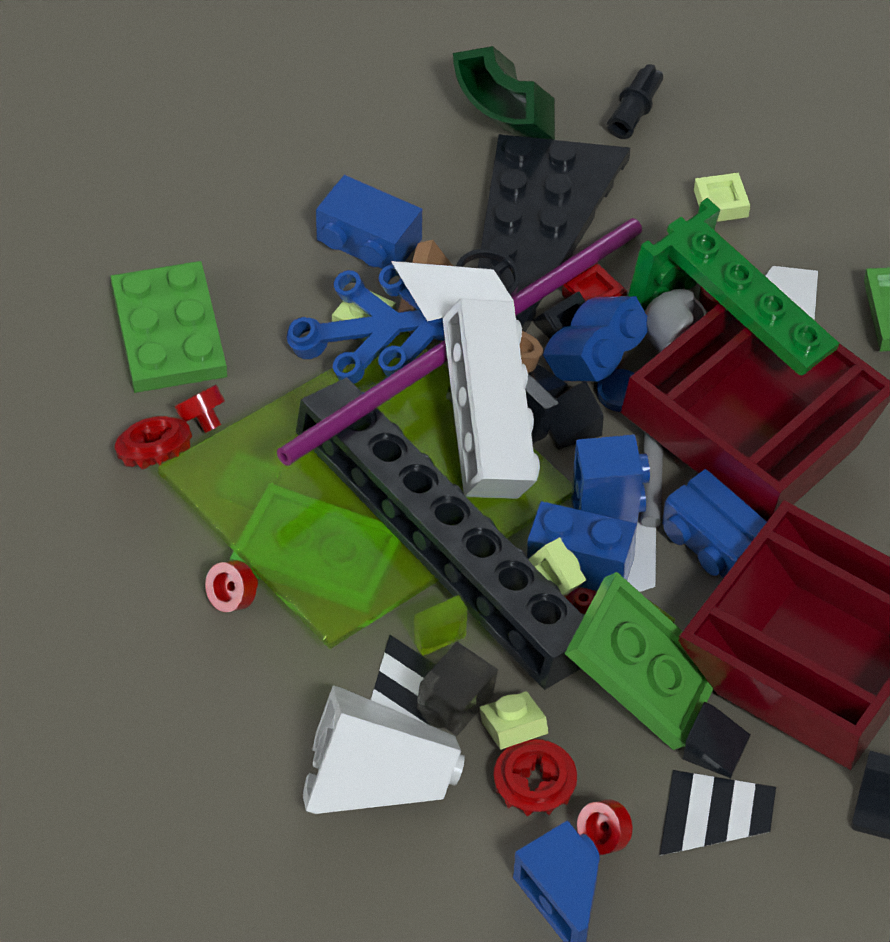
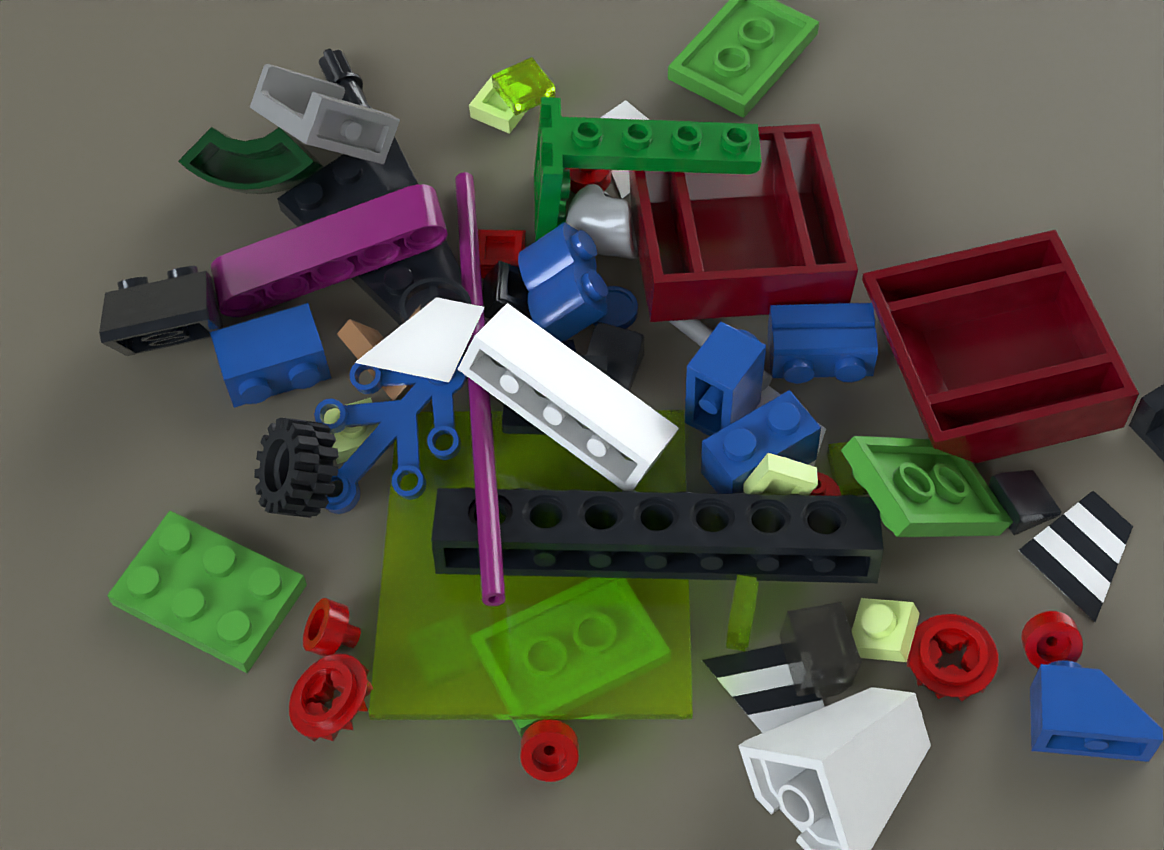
camera: 45 degrees left, 5 degrees up
(291, 296) = (296, 467): none -> black tyre
(328, 135) = (160, 313): none -> black slope
(478, 189) = (328, 251): none -> magenta beam
(574, 98) = (319, 116): none -> light grey panel
(743, 195) = (523, 85): none -> clear neon green tile

